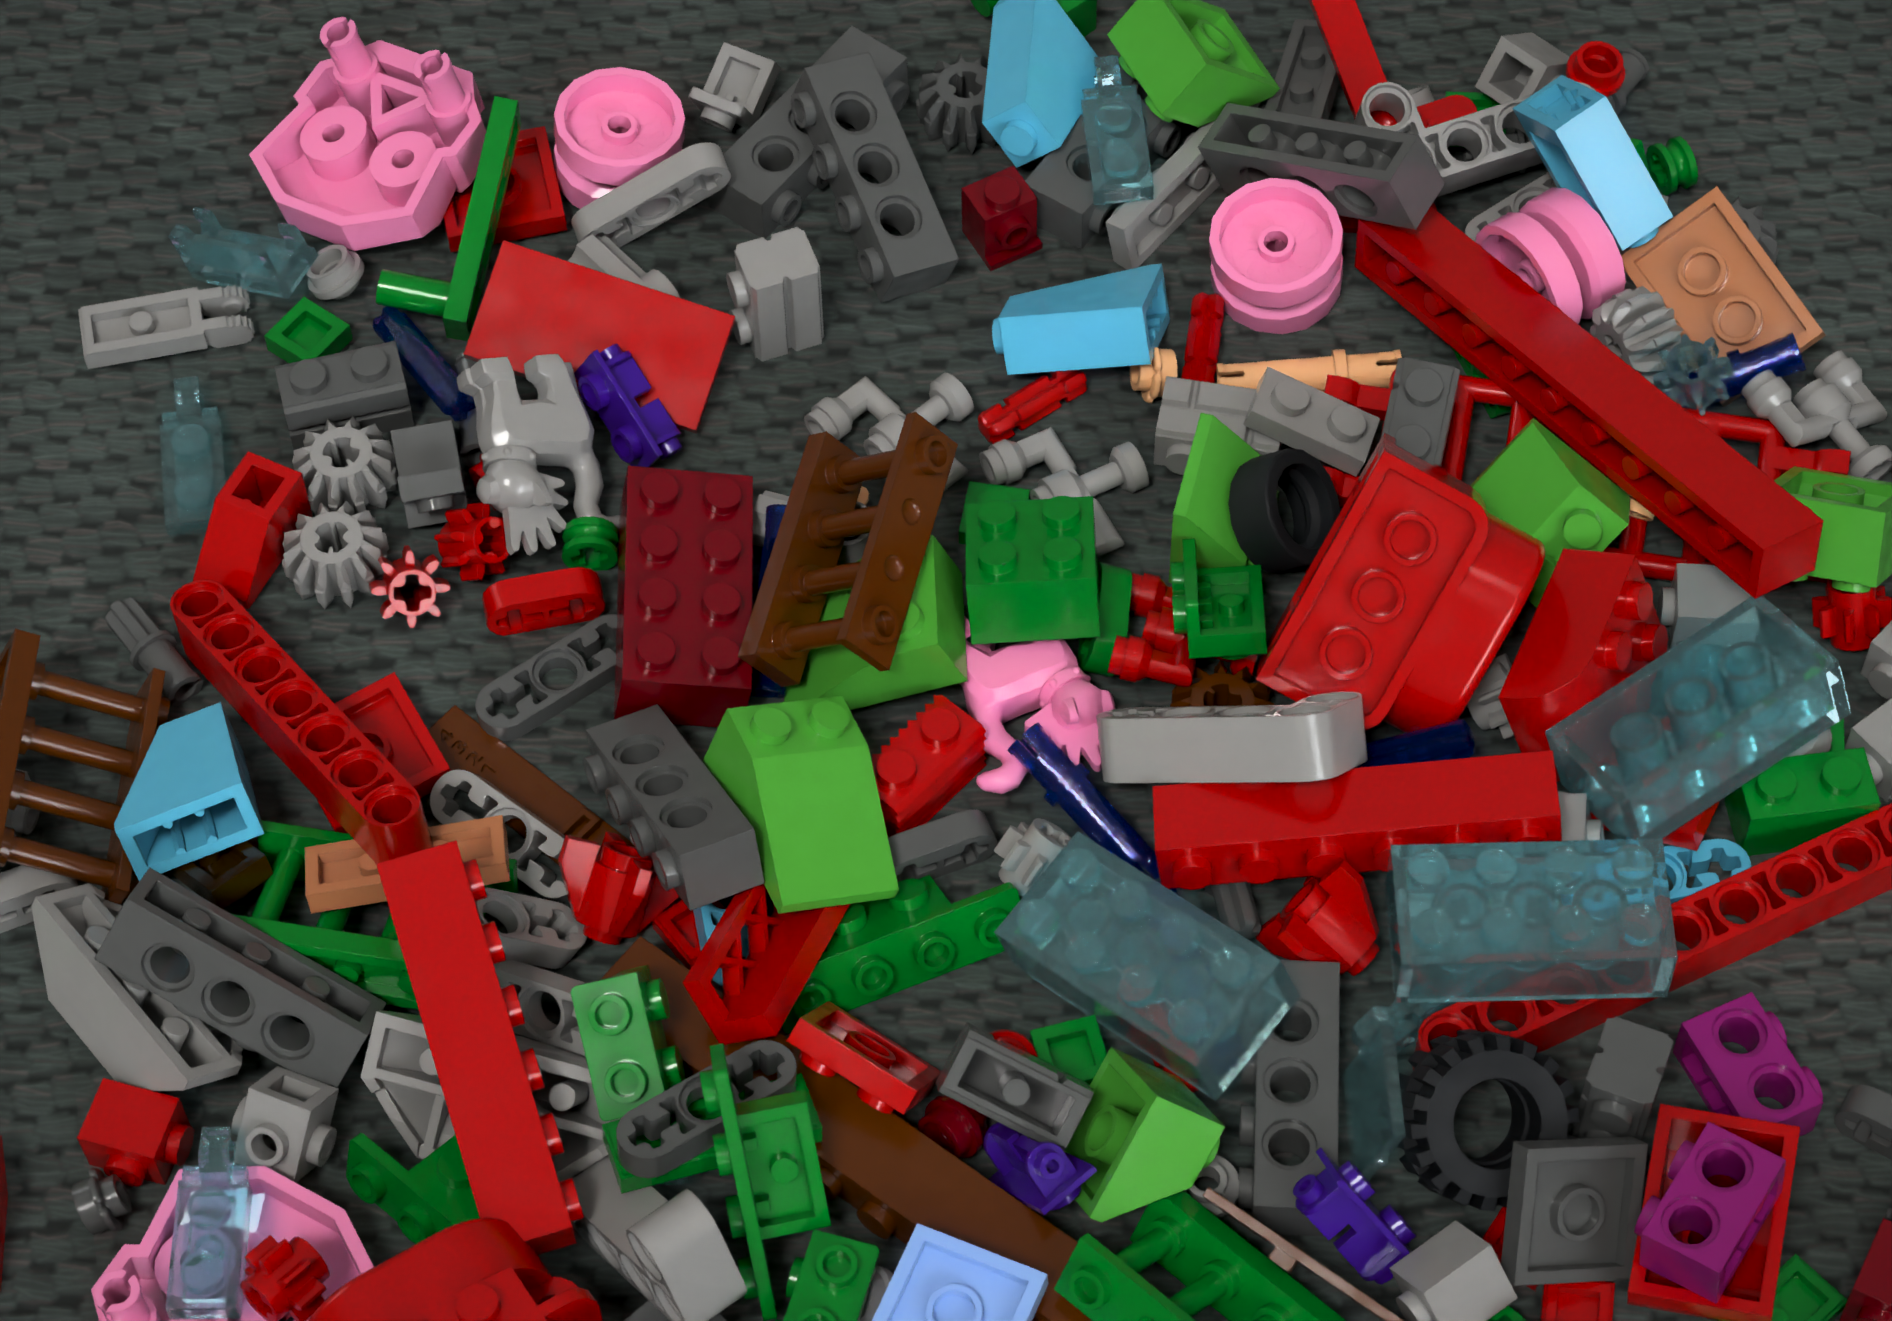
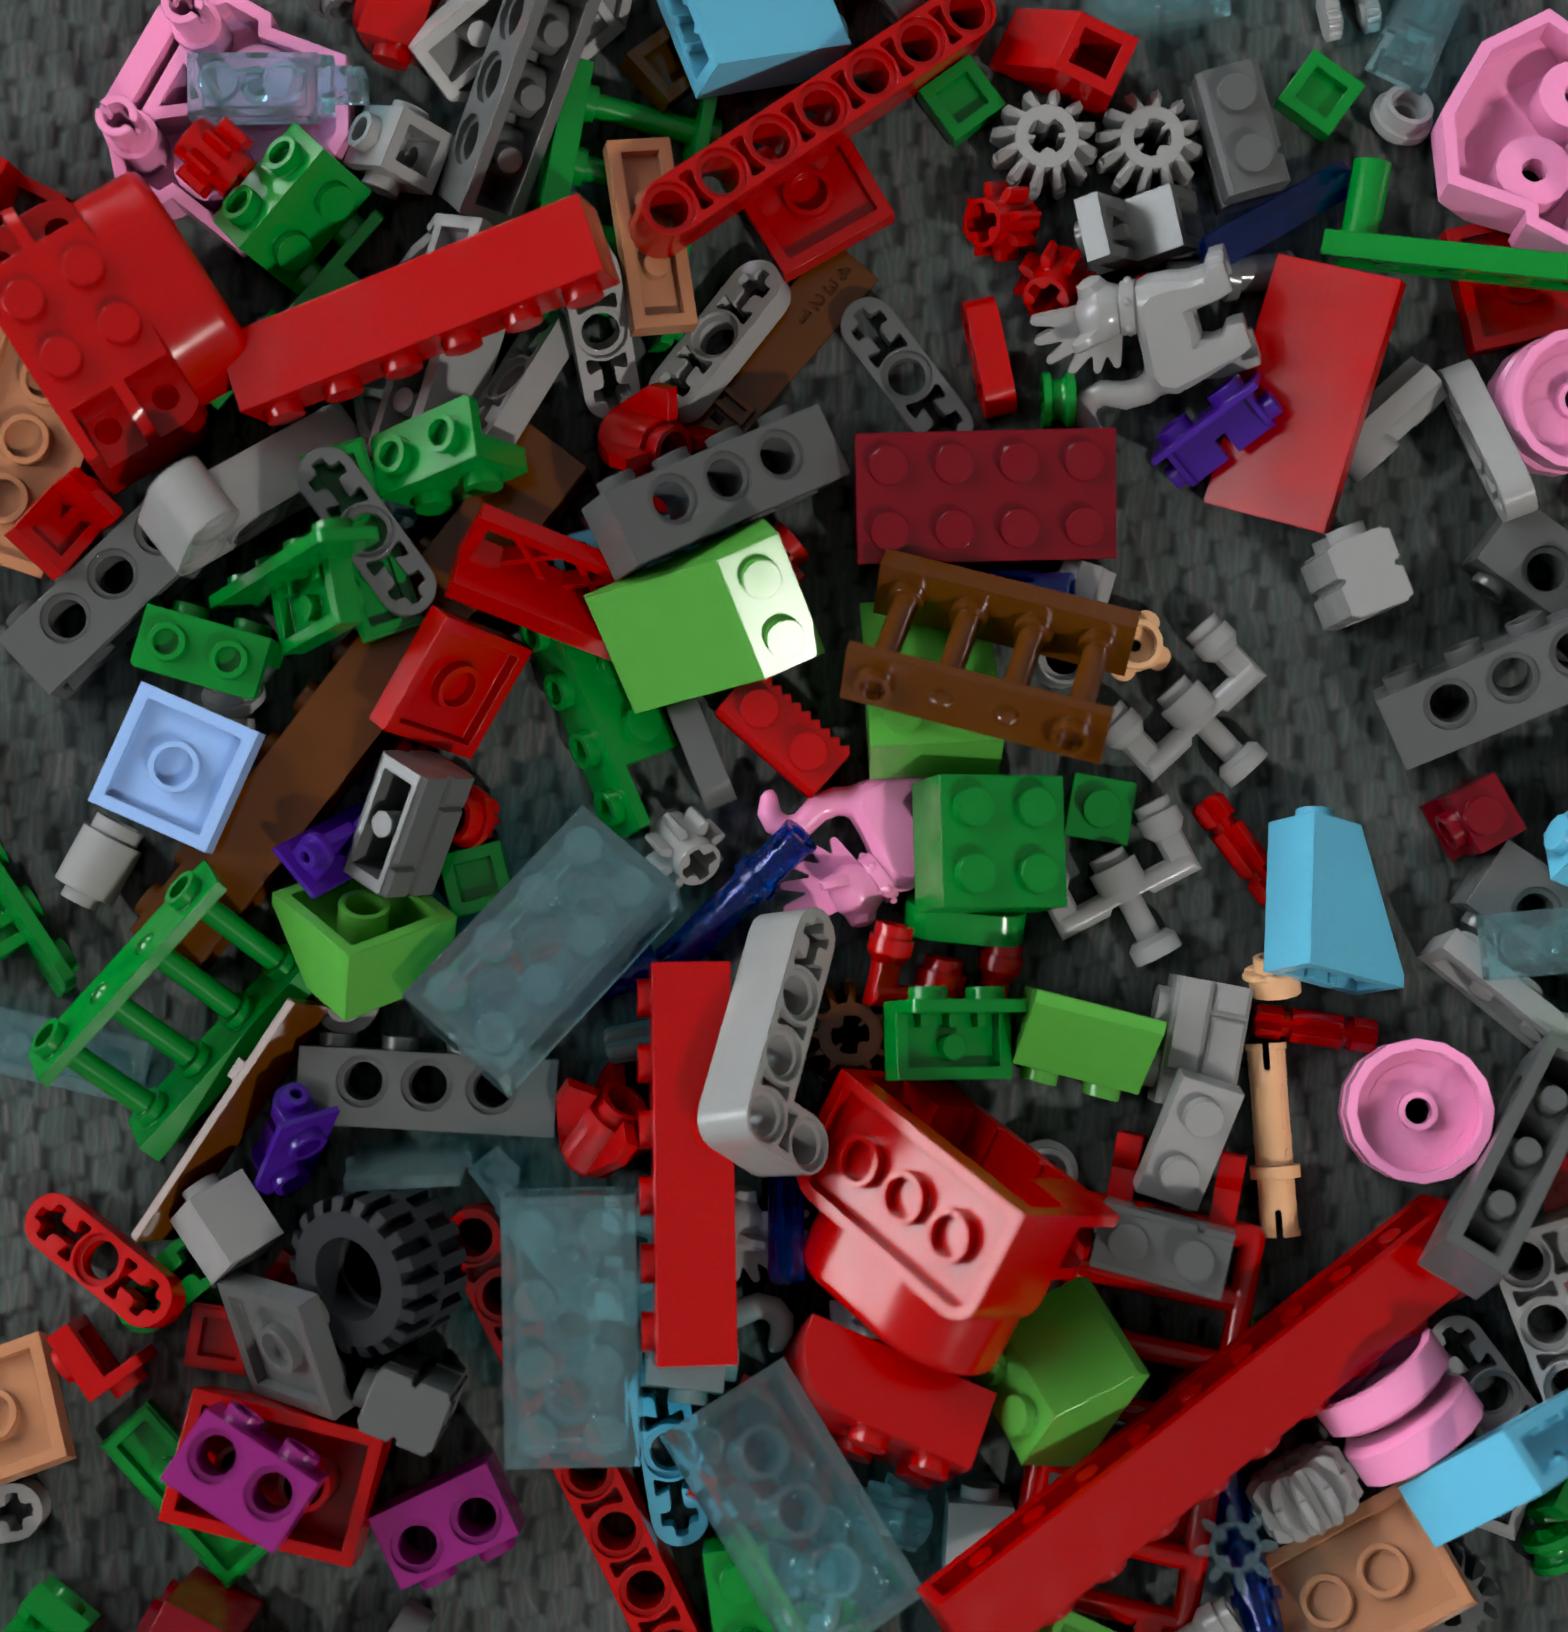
camera: 90 degrees right, 30 degrees up
(289, 621) = (961, 101): none -> green plate
(337, 1210) = (290, 205): none -> green bracket
(1256, 512) = (1078, 1077): black tyre -> none

